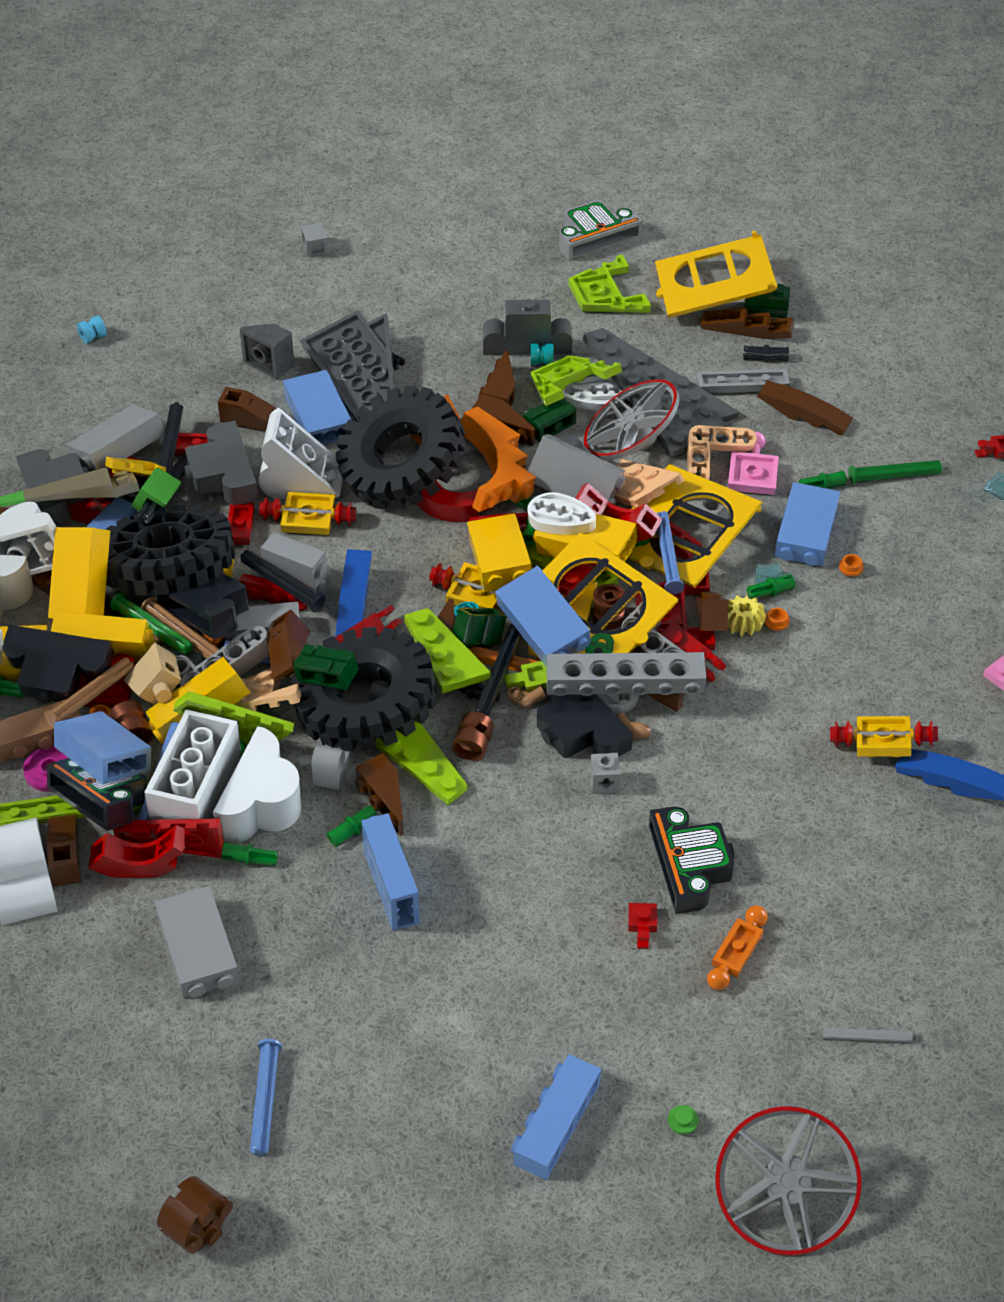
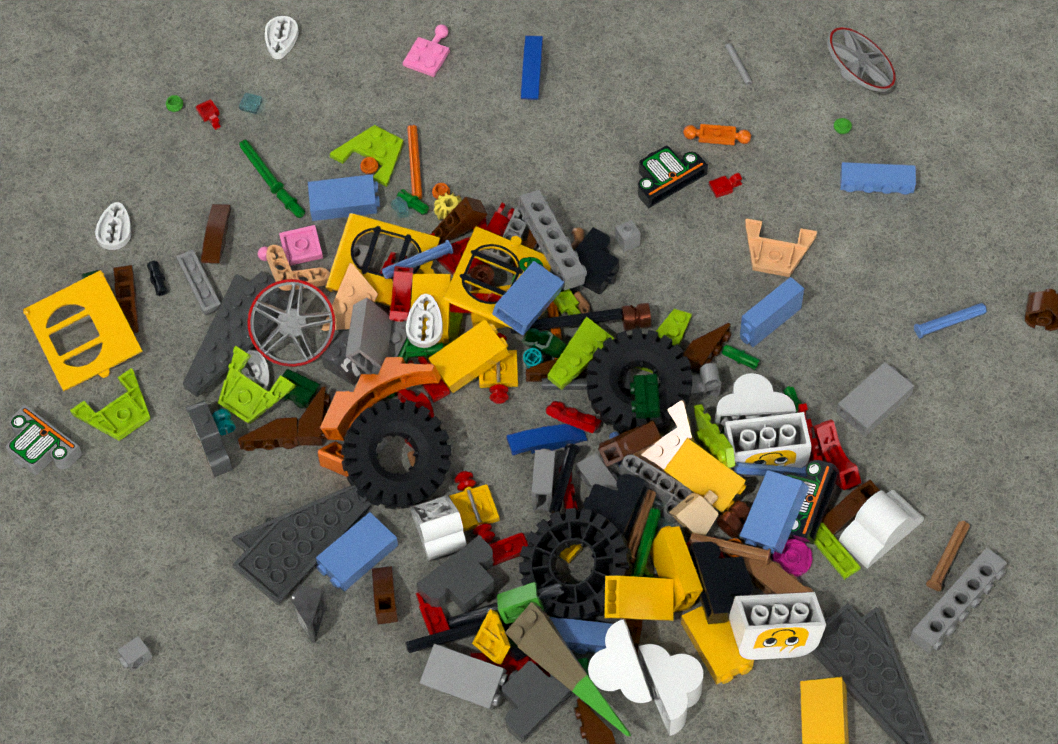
camera: 110 degrees left, 10 degrees up
(491, 927) = (775, 255): none -> light nougat wing
(839, 610) = (414, 161): none -> orange axle
(867, 344) = (105, 225): none -> white piece
(878, 584) = (376, 144): none -> lime wing
(883, 735) = (520, 105): yellow plate -> none

